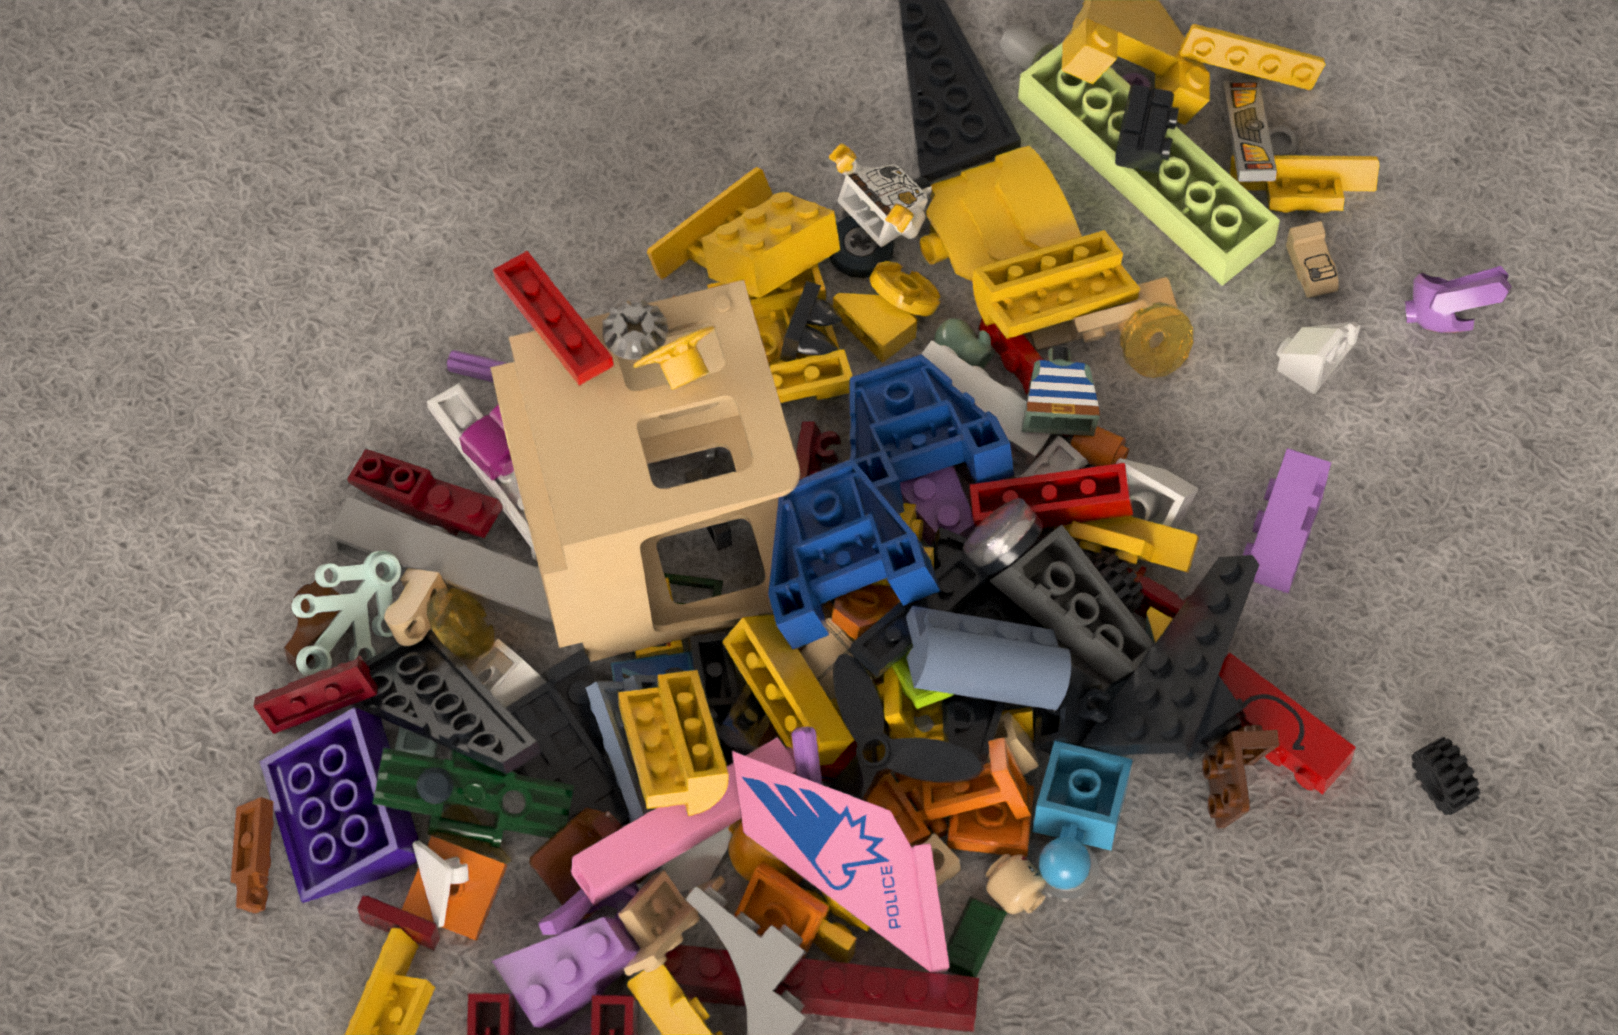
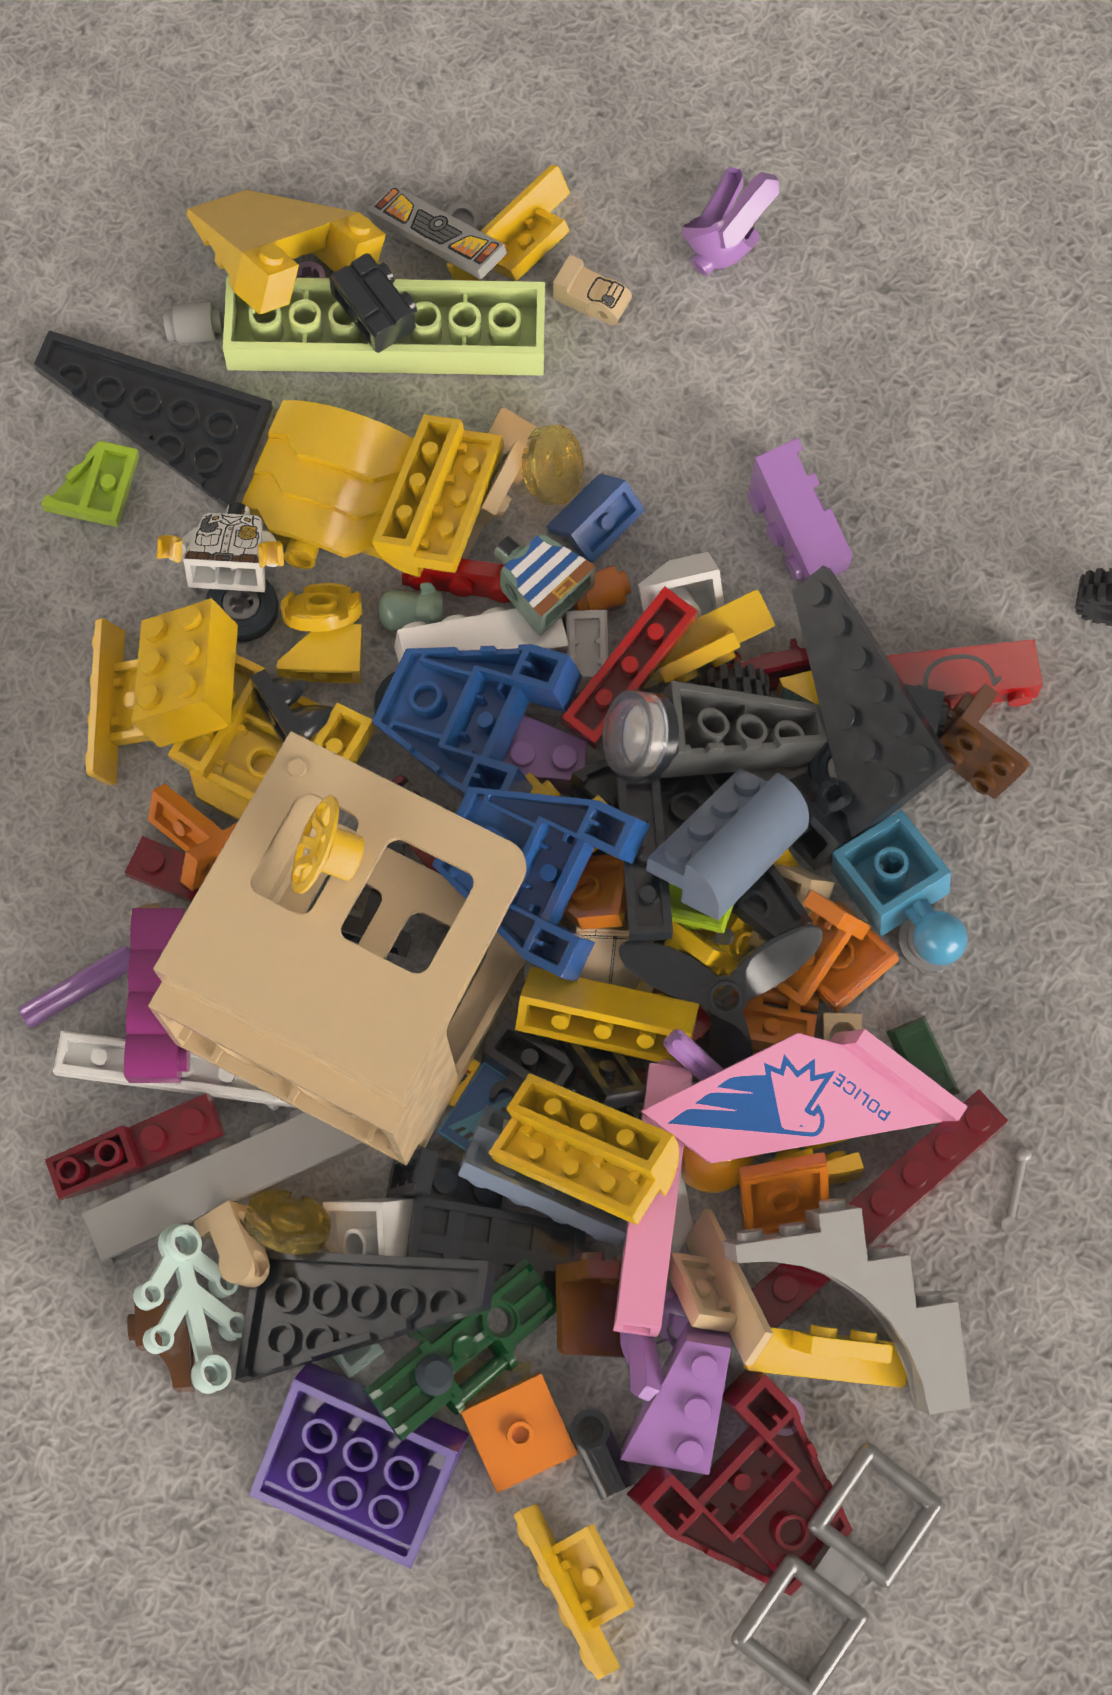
camera: 50 degrees left, 10 degrees up
(252, 853) = (332, 1574): dark orange hinge -> none
(316, 695) = (243, 1398): dark red plate -> none
(387, 916) = (508, 1504): dark red tile -> none
(437, 877) = (511, 1440): white piece -> none
(477, 968) = (602, 1457): none -> black piece
(553, 318) = (177, 916): red plate -> none
(635, 344) = (271, 873): light grey gear -> none
(854, 92) = (97, 486): none -> lime wing
(1015, 884) = (915, 989): tan head -> none
(1153, 403) = (597, 516): none -> blue panel
(1251, 56) = (374, 169): yellow bracket -> none
(1316, 353) = (674, 362): white slope -> none

